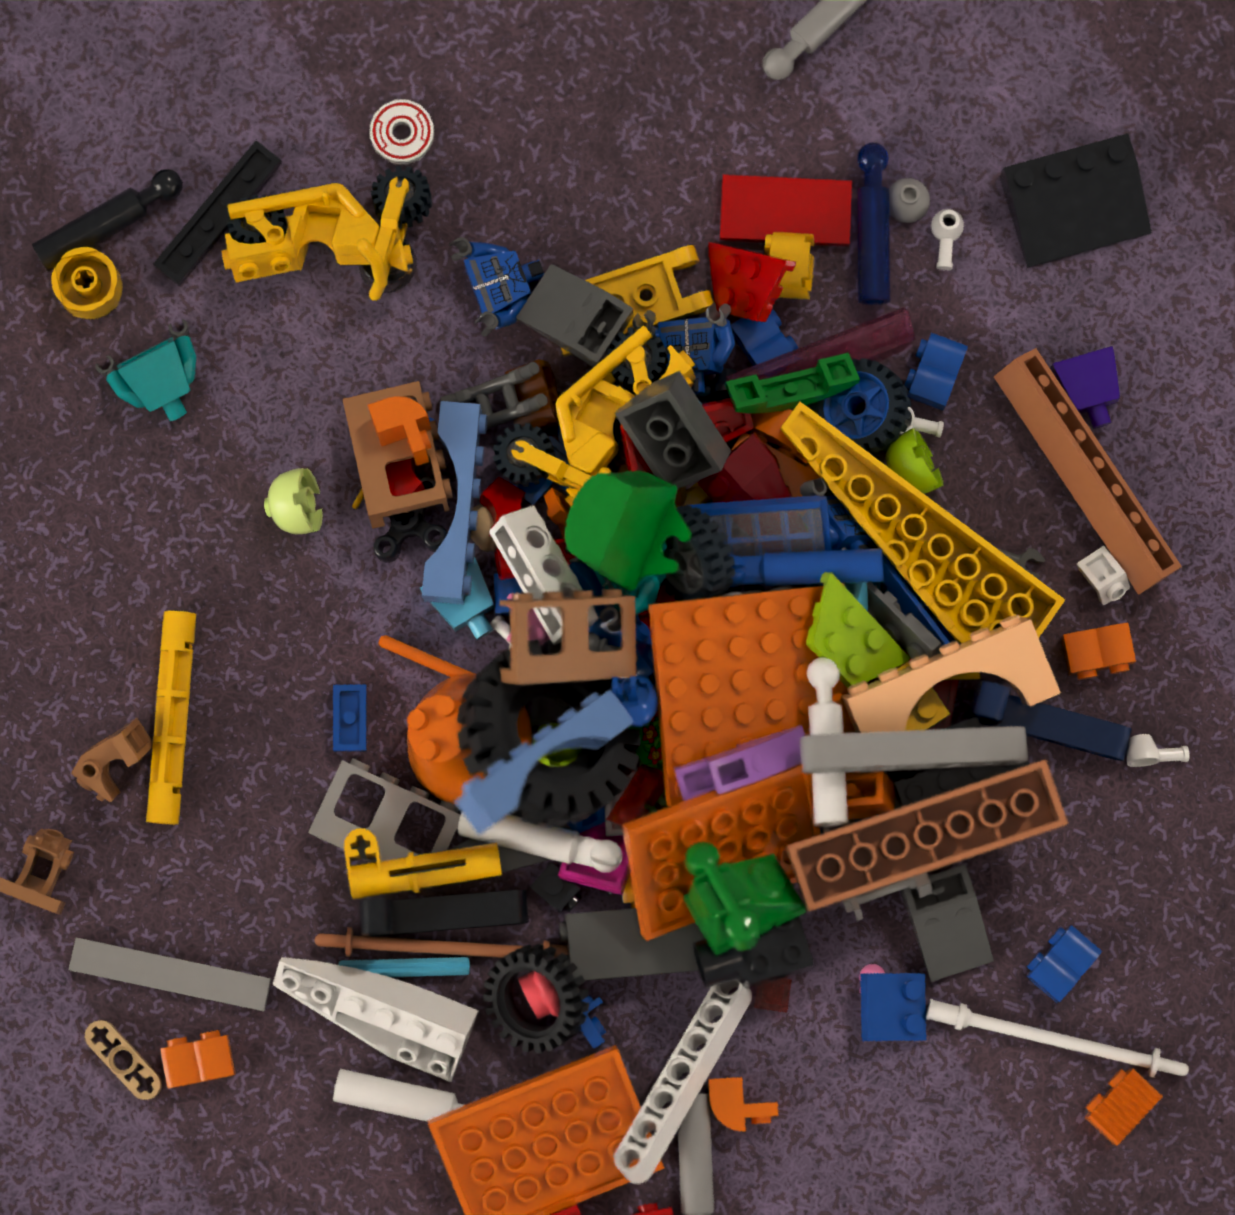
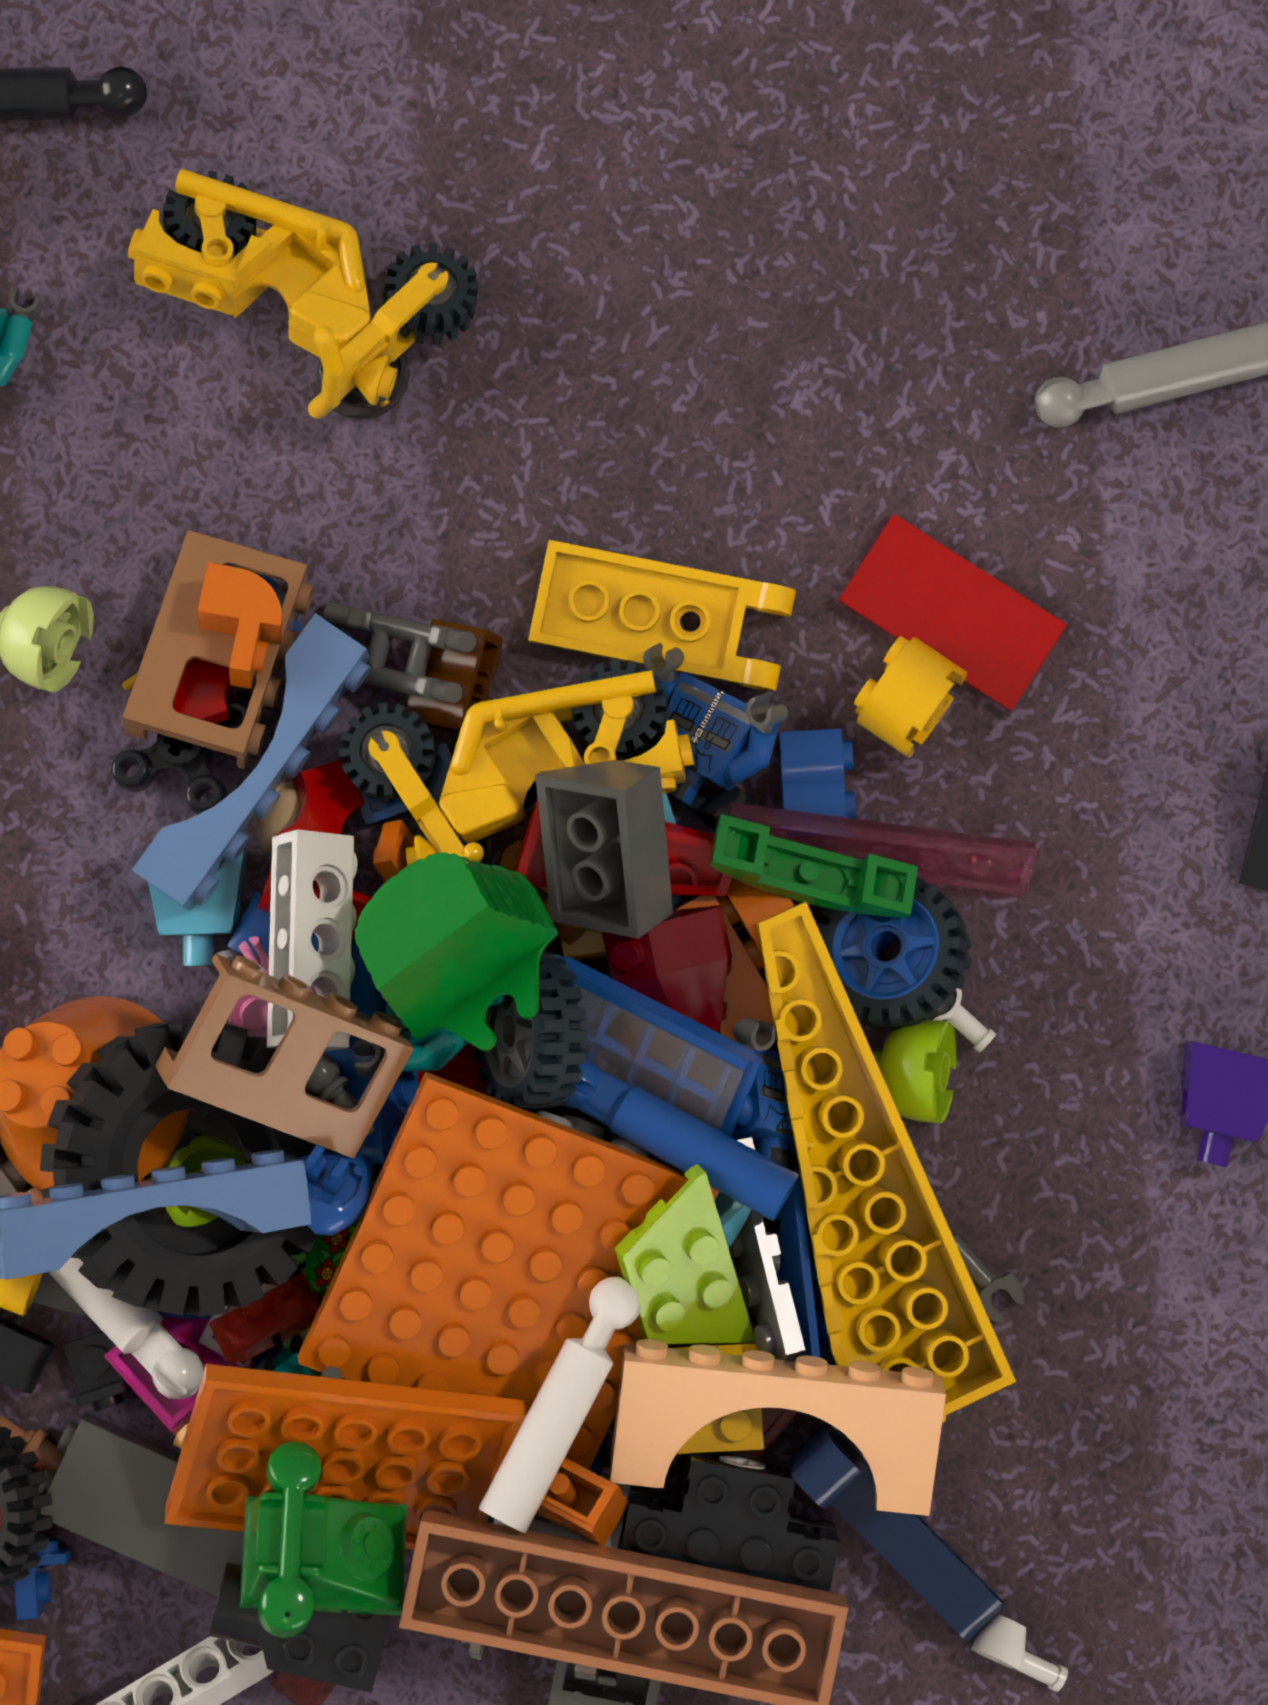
camera: 30 degrees right, 5 degrees up
(210, 219) = (146, 177): black plate -> none
(395, 114) = (482, 171): white tile -> none
(421, 657) = (99, 948): orange bar -> none
(497, 281) = (495, 488): torso -> none
(575, 315) = (572, 597): dark grey slope -> none
(741, 765) = (427, 1371): medium lavender slope -> none
(746, 280) = (835, 684): red wing -> none
(873, 228) = (1058, 707): clear blue piece -> none
(908, 200) = (1128, 694): light grey brick -> none
(913, 750) = (674, 1486): light grey beam -> none
(936, 371) = (1027, 956): blue brick -> none
(946, 235) = (1152, 775): white bar -> none
(1087, 471) = (1152, 1219): nougat brick -> none
(1098, 650) = (1023, 1470): orange brick -> none
(1104, 575) = (1092, 1371): white bracket -> none

